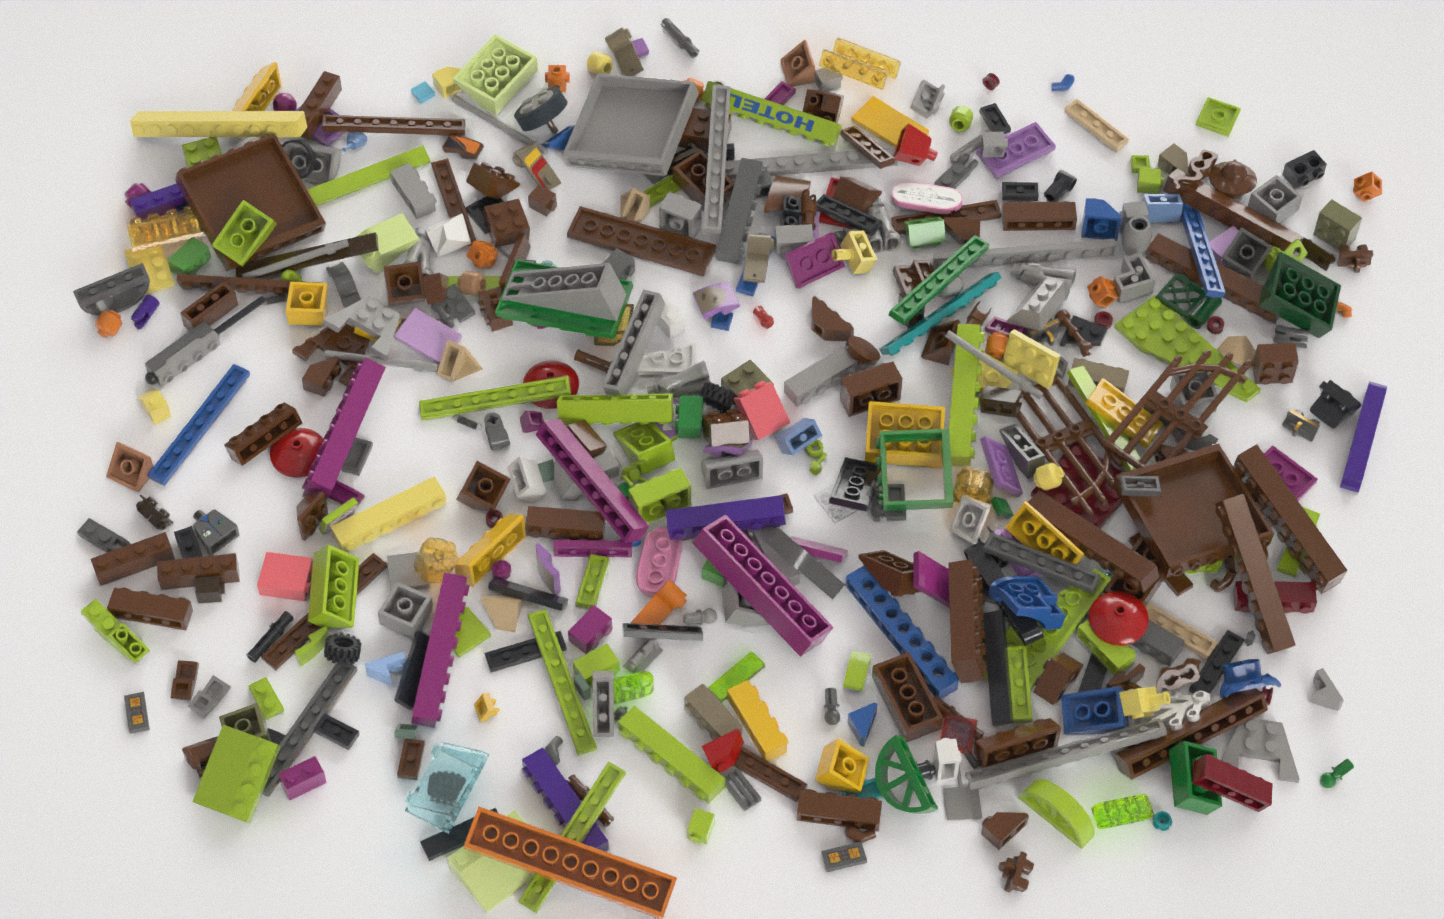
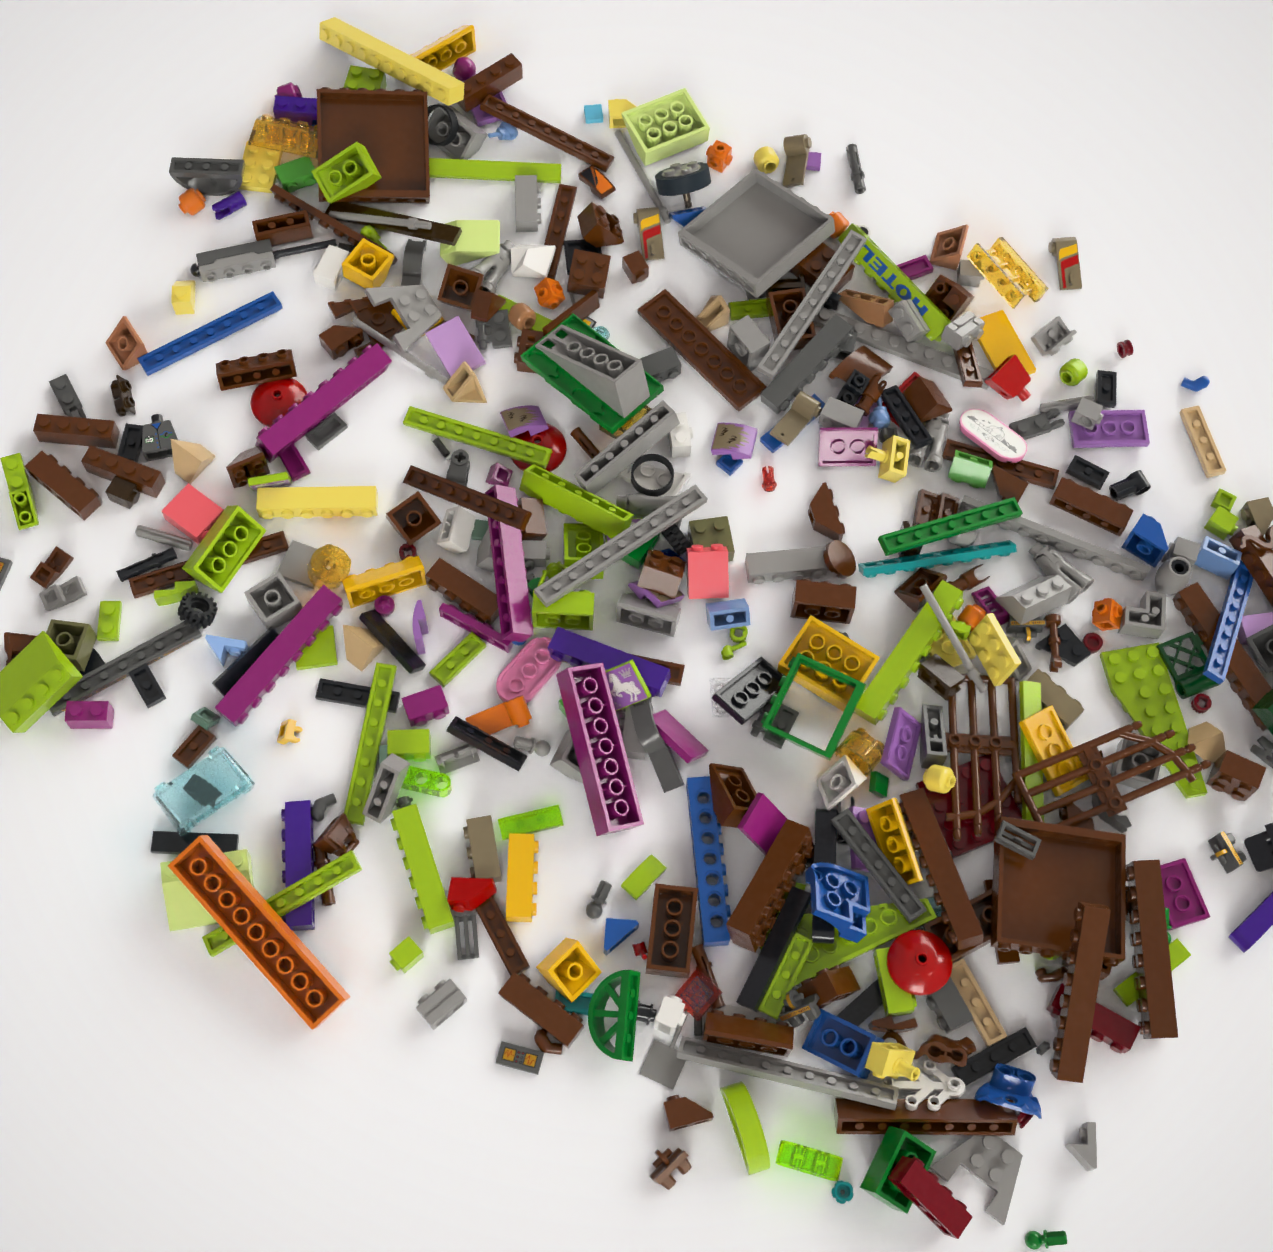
camera: 25 degrees right, 10 degrees up
(251, 535) = (190, 459): none -> tan slope
(269, 608) = (164, 538): none -> light grey axle
(273, 320) = (329, 270): none -> white brick
(523, 445) = (467, 498): none -> reddish brown tile
(527, 365) = (524, 419): none -> slope
(584, 765) = (335, 835): none -> reddish brown piece
(665, 342) = (652, 457): none -> black tyre
(680, 420) = (620, 546): none -> light grey plate
(753, 848) = (441, 1003): none -> light grey brick
(755, 523) = (626, 685): none -> tile
(762, 143) = (868, 307): none -> medium nougat slope
(803, 137) = (909, 320): none -> light grey brick
(824, 224) = (880, 416): none -> medium blue piece
(853, 125) = (963, 330): none -> light grey brick
(888, 726) = (640, 950): none -> red hand
(902, 33) = (1067, 262): none -> dark tan door
(997, 355) = (960, 629): none -> lime plate
(1052, 694) = (796, 1005): none -> dark grey hips

